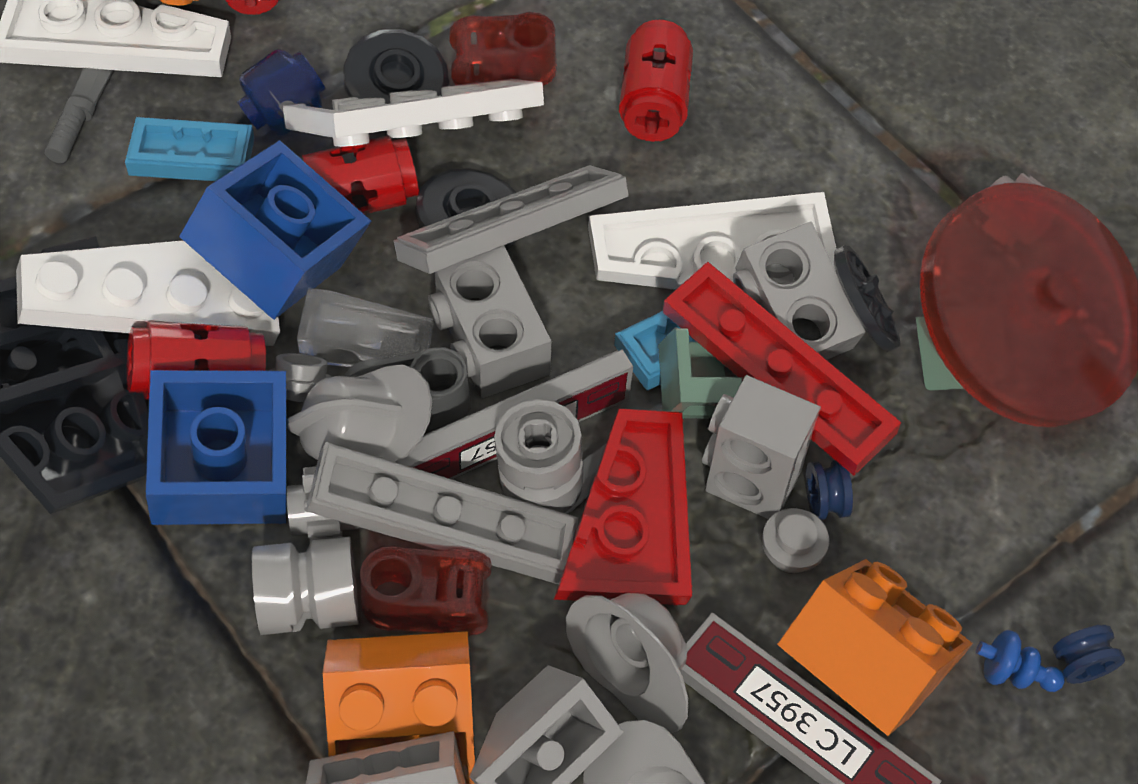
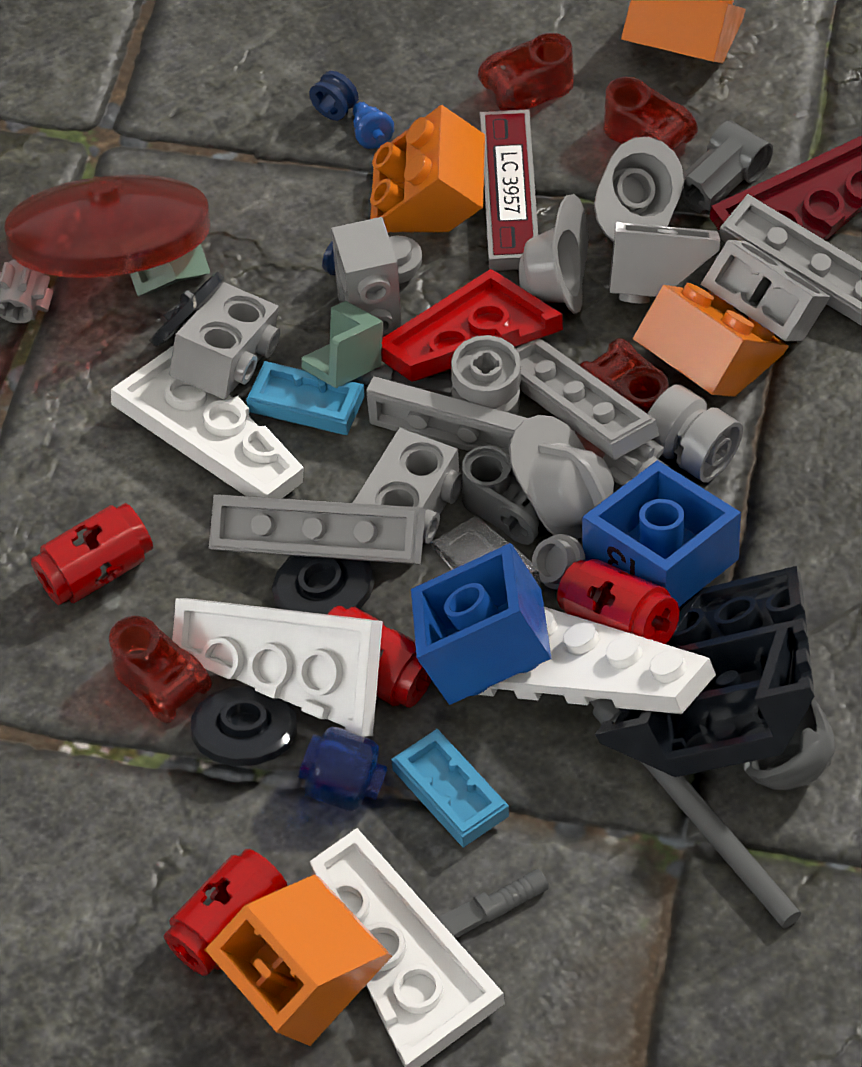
camera: 125 degrees left, 5 degrees down
(758, 345) = (299, 303): red plate -> none

